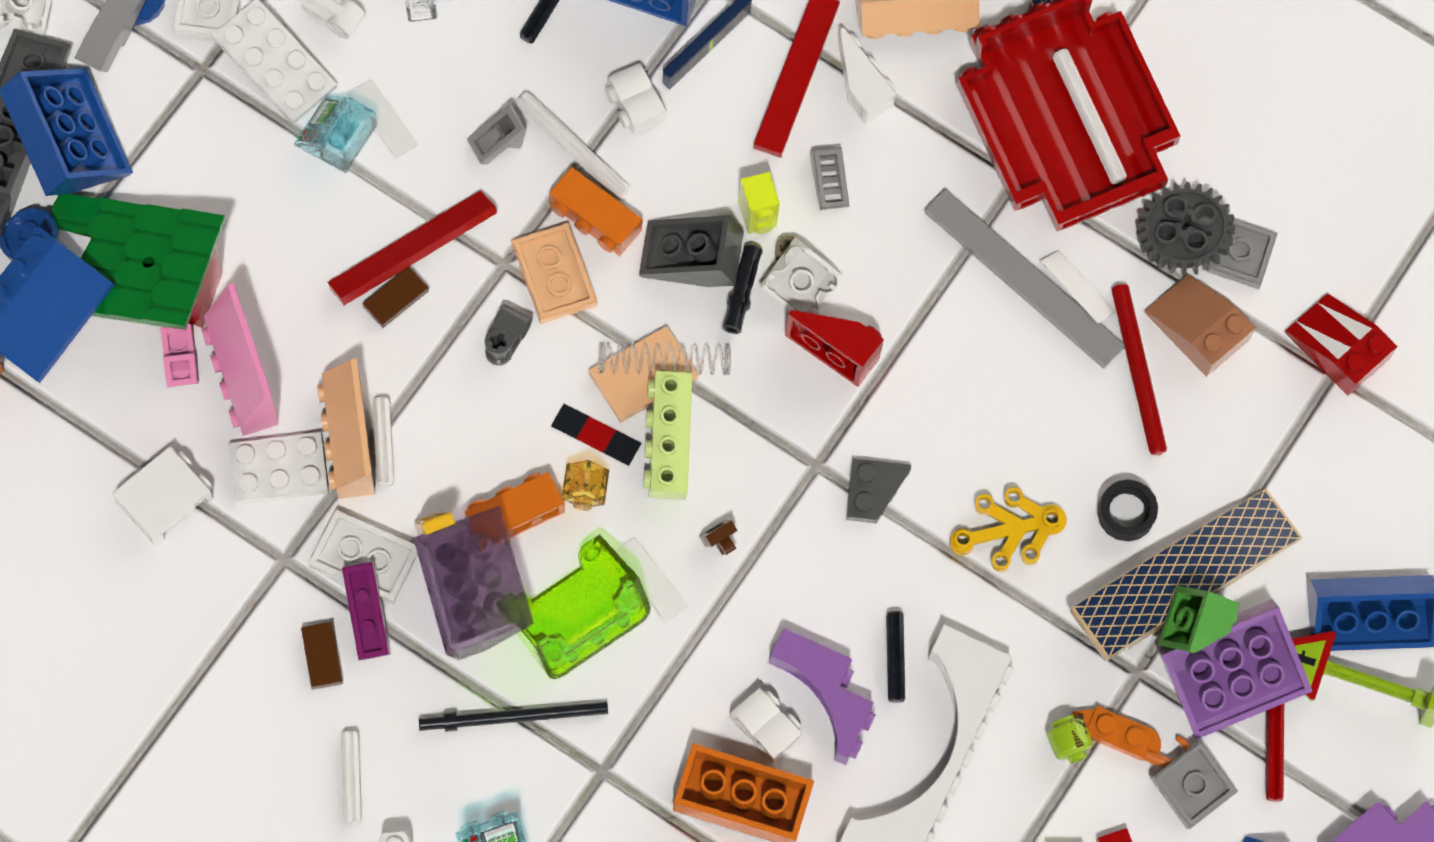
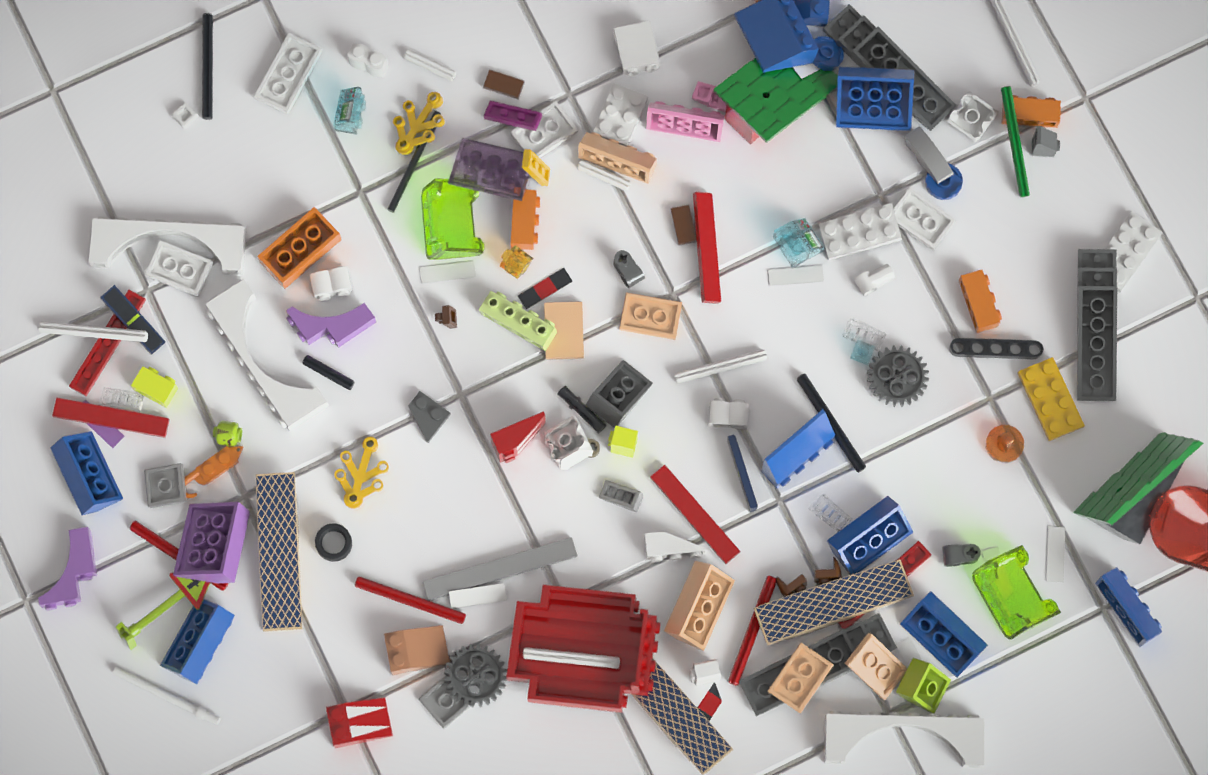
camera: 125 degrees right, 5 degrees up
(458, 739) = (418, 125): none -> yellow plant
(497, 135) = (746, 325): light grey slope -> none
(595, 212) = (672, 354): orange brick -> none
(725, 361) = (541, 372): clear piece -> none
(1197, 619) = (243, 529): bright green slope -> none

